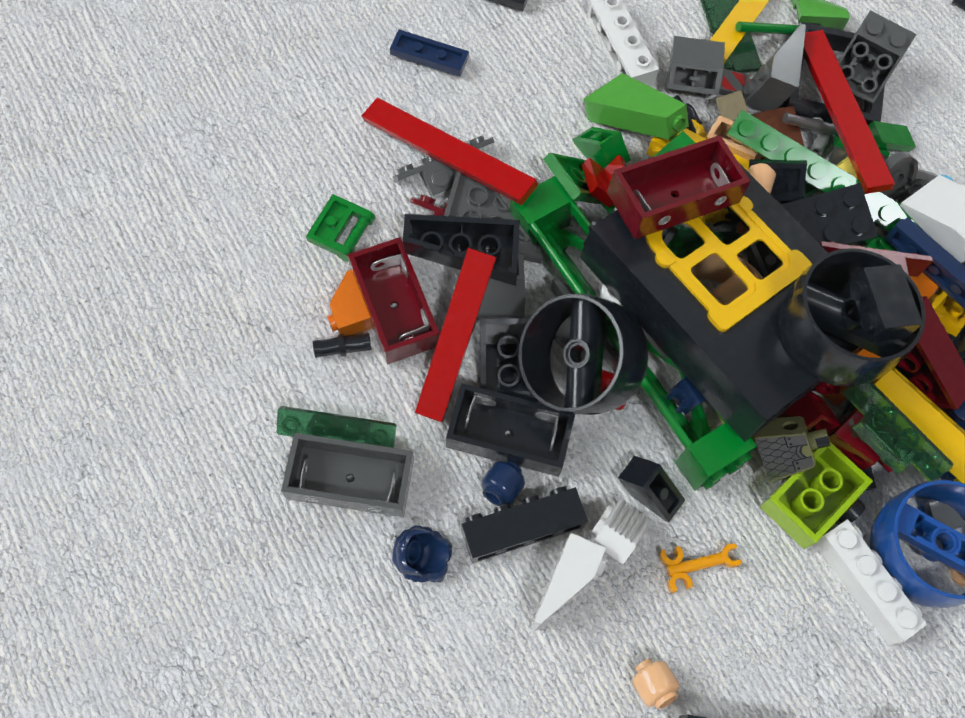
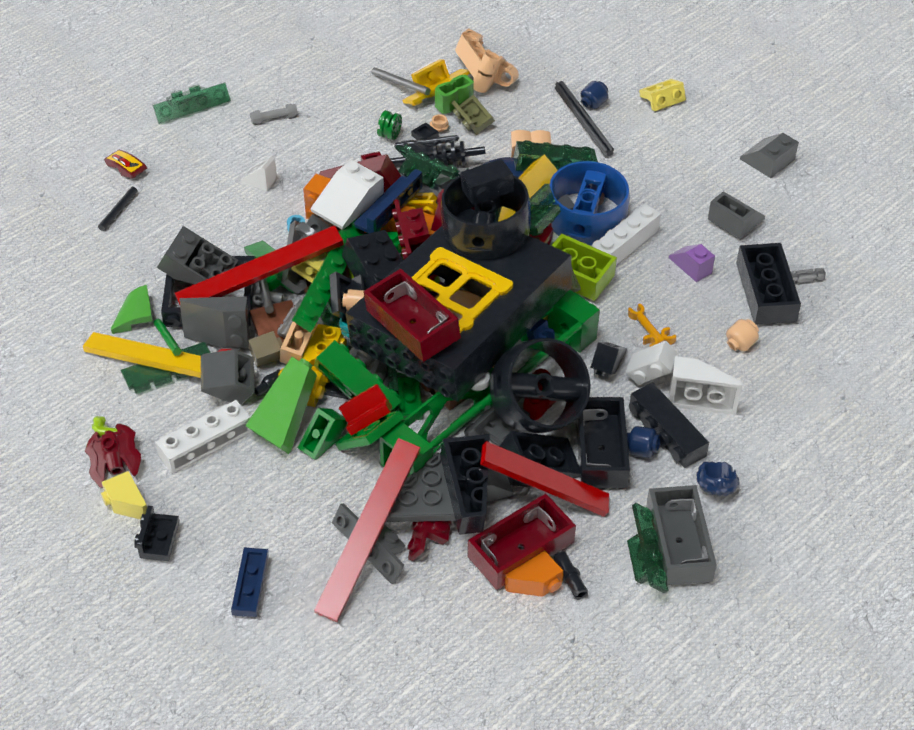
camera: 100 degrees left, 20 degrees down
(333, 222) = (459, 612): green plate -> none
(813, 667) = (694, 261): none -> medium lavender slope

